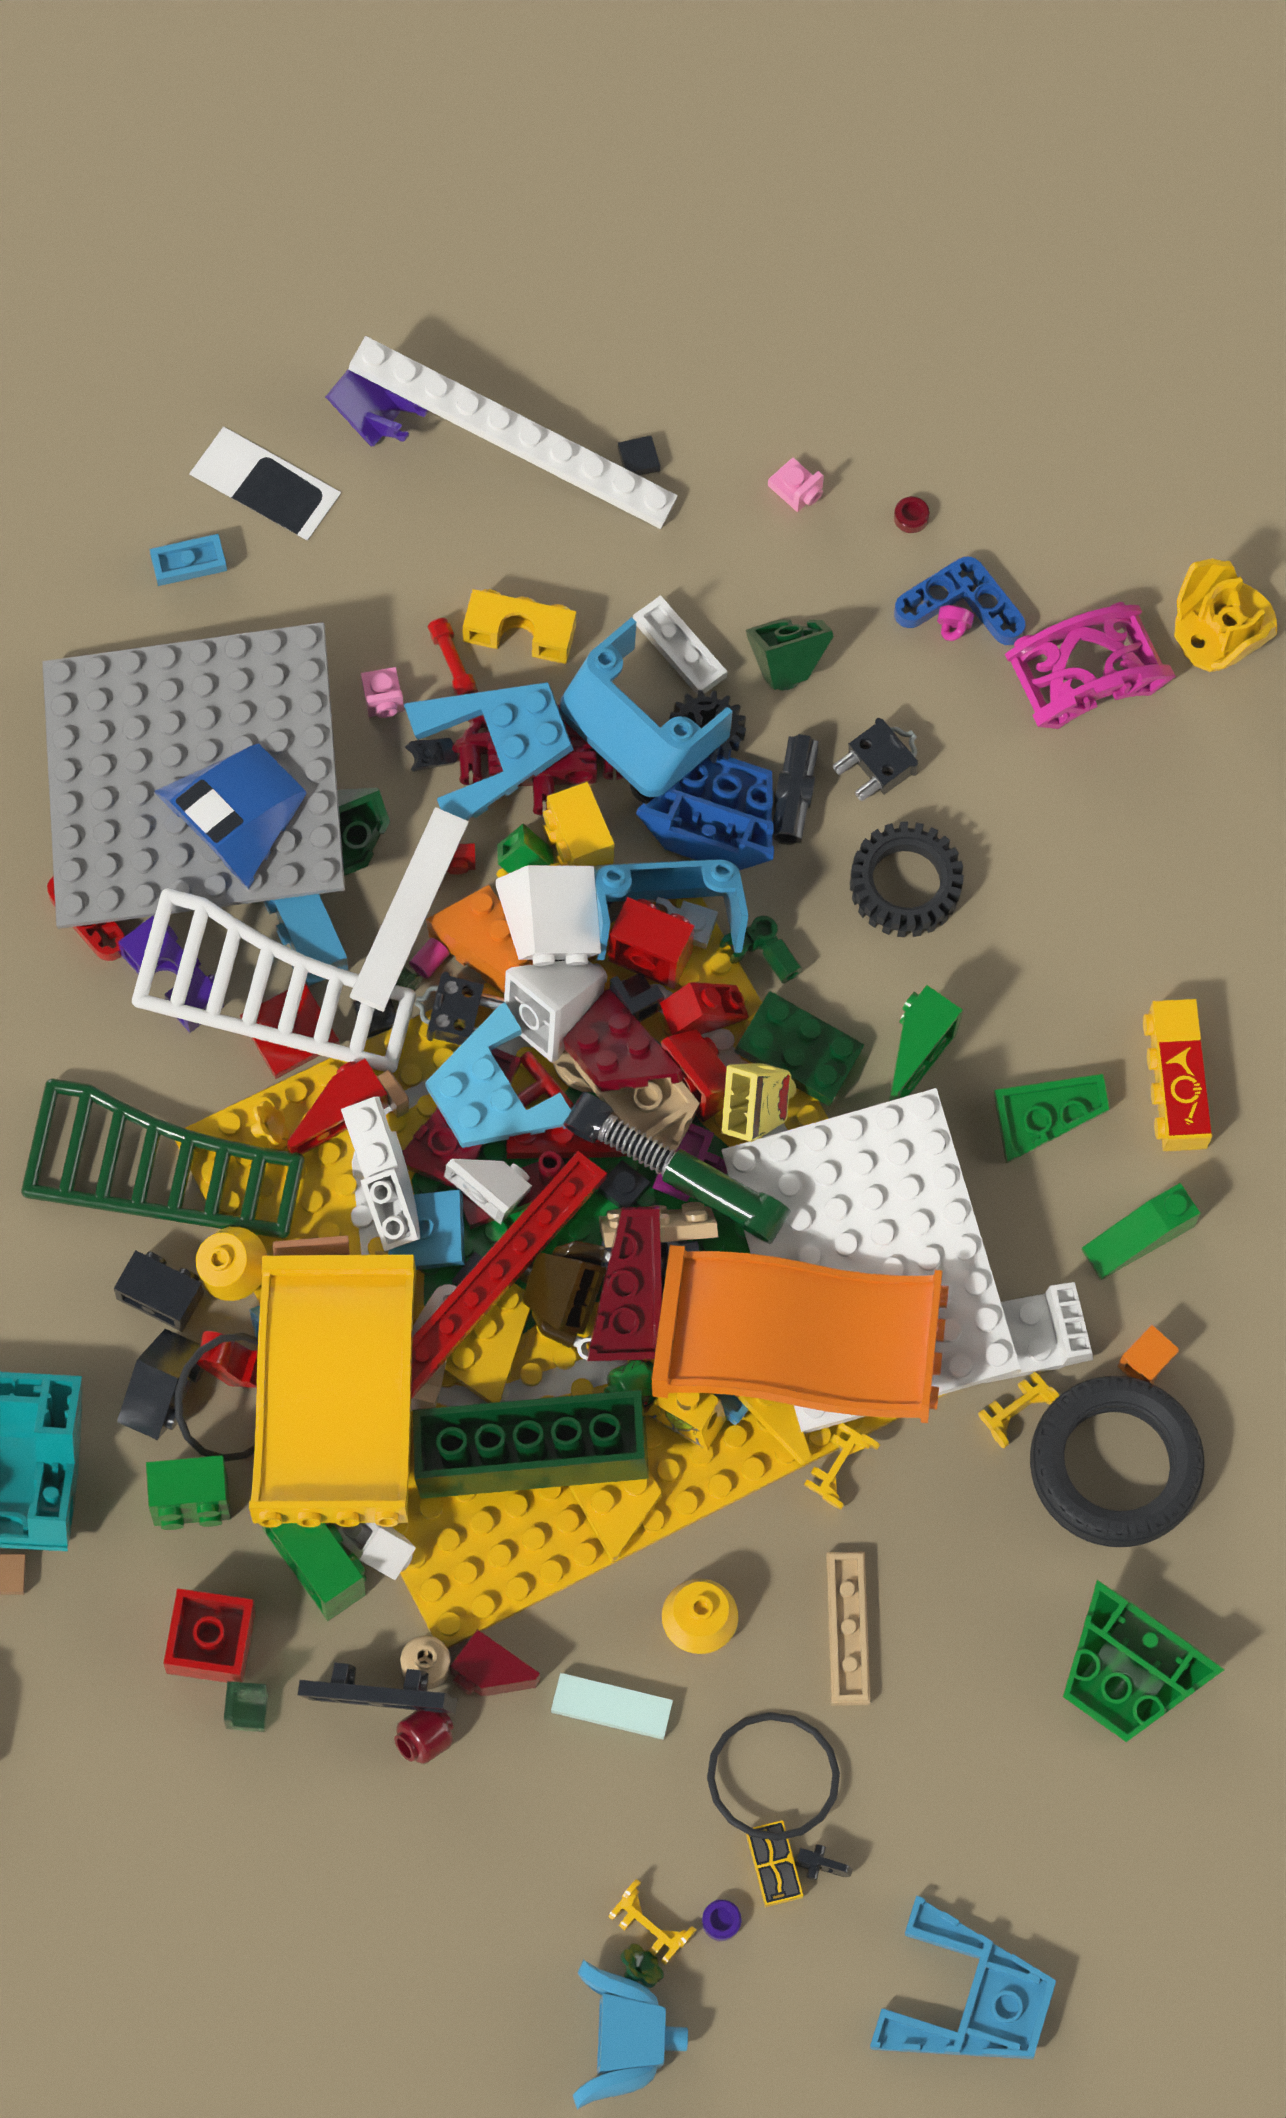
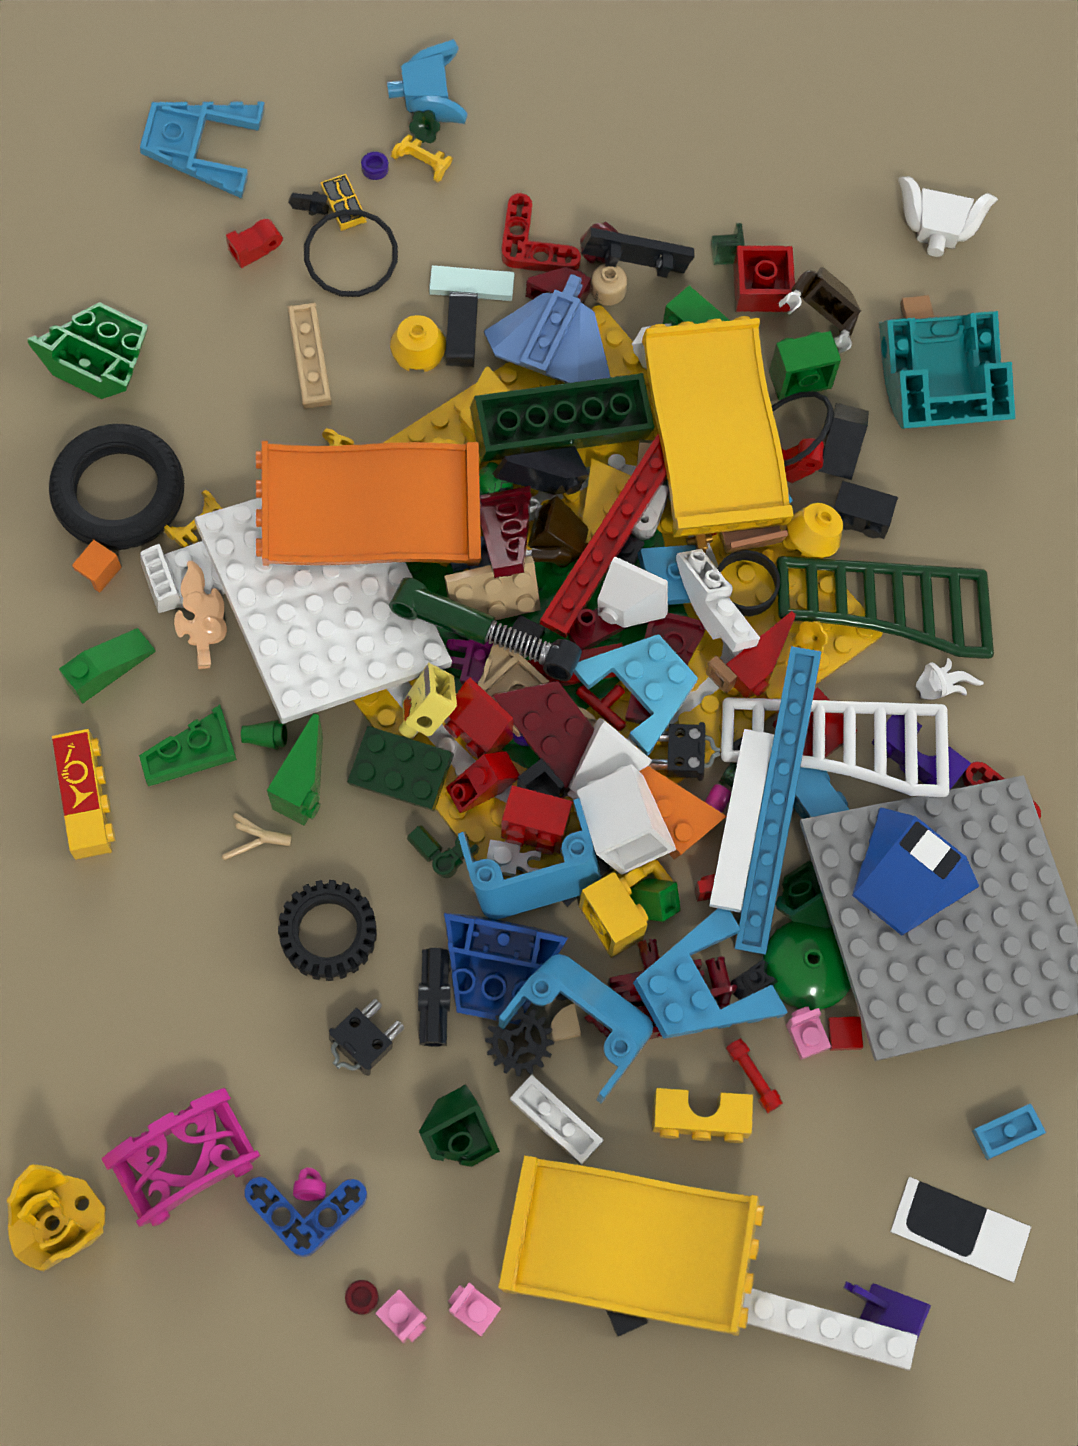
camera: 170 degrees right, 0 degrees up
(119, 1059) = (937, 683): none -> white piece
(133, 1586) = (828, 298): none -> dark brown torso
(326, 1174) = (767, 564): none -> black tyre
(344, 687) = (845, 1033): none -> red tile
(359, 928) = (778, 800): none -> dark azure plate
(387, 761) = (799, 981): none -> green dish
(522, 1584) = (553, 337): none -> medium blue panel
(525, 1748) = (527, 249): none -> red beam
(554, 1376) = (546, 471): none -> black slope
(624, 501) = (632, 1245): none -> yellow panel
(637, 1630) = (461, 329): none -> black beam
(870, 487) = (402, 1317): none -> bright pink bracket
(907, 1808) = (253, 242): none -> red leg
(962, 1116) = (265, 734): none -> green cone
(967, 997) = (265, 837): none -> tan plant
(1012, 1273) = (208, 609): none -> light nougat piece

